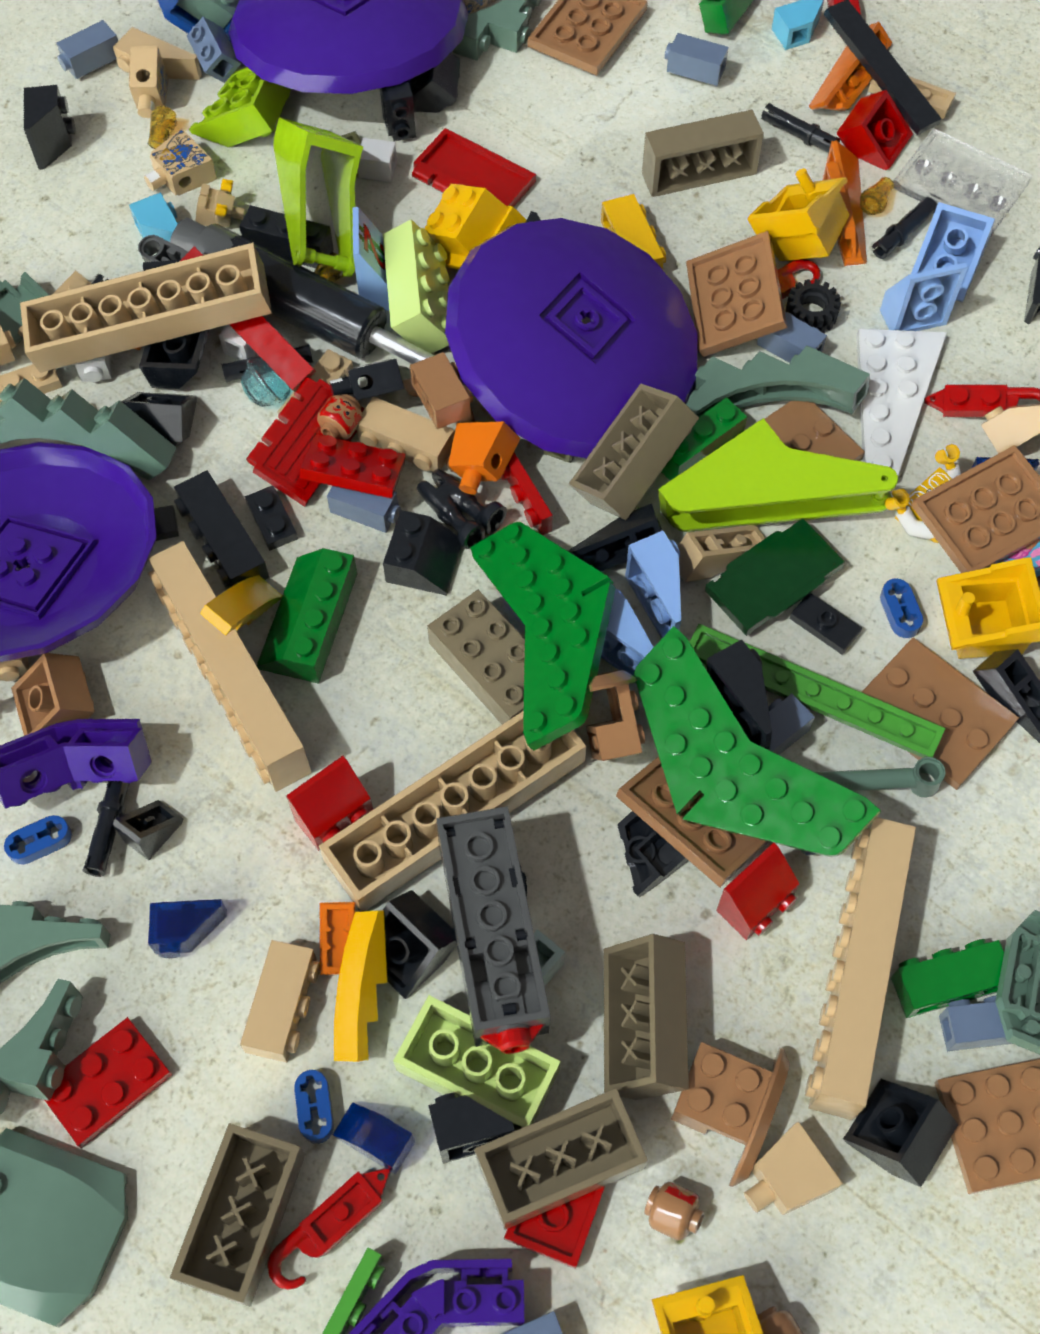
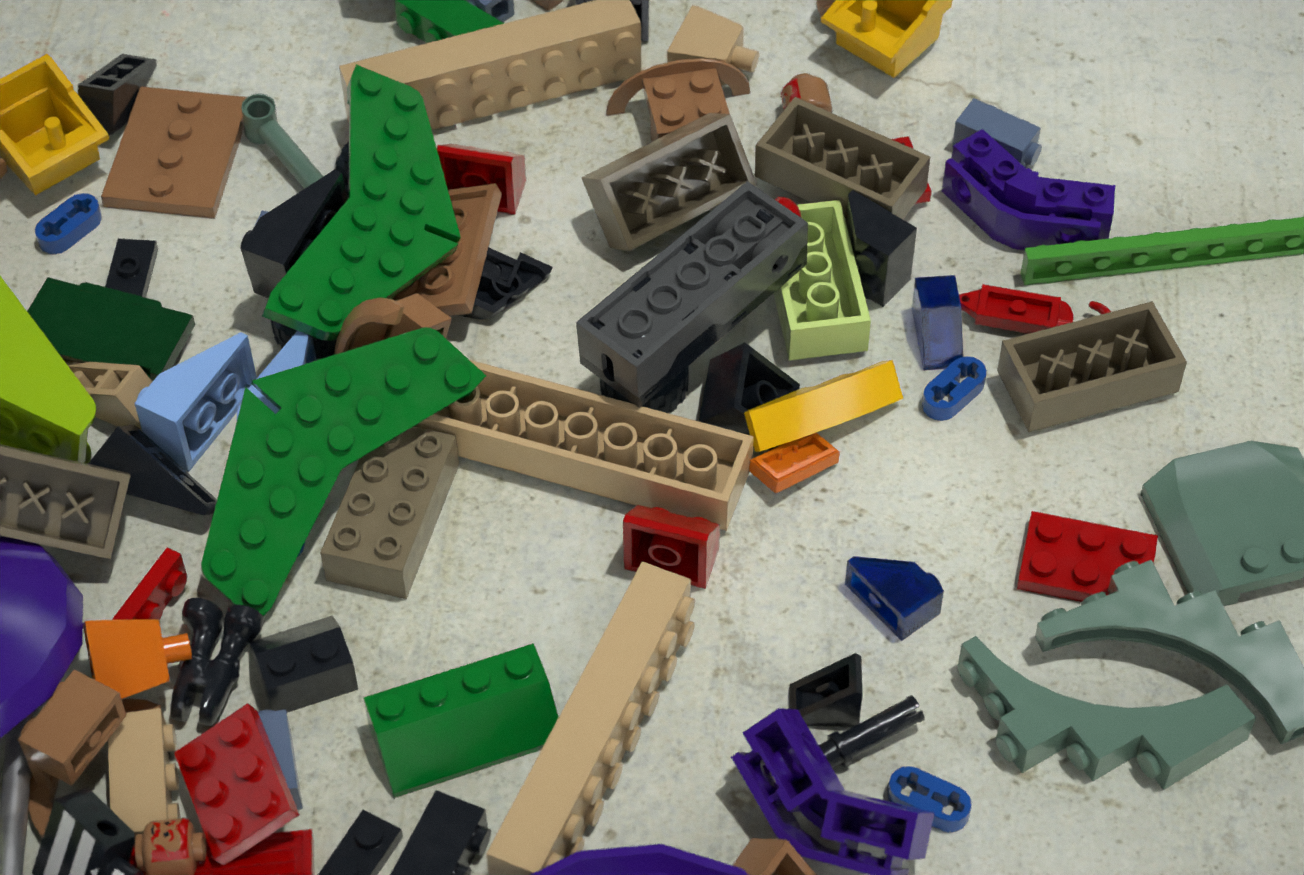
camera: 125 degrees left, 10 degrees down
(241, 604) = (525, 734): yellow slope -> none
(280, 1001) = (892, 465): tan brick -> none
(832, 698) = (227, 226): bright green plate -> none

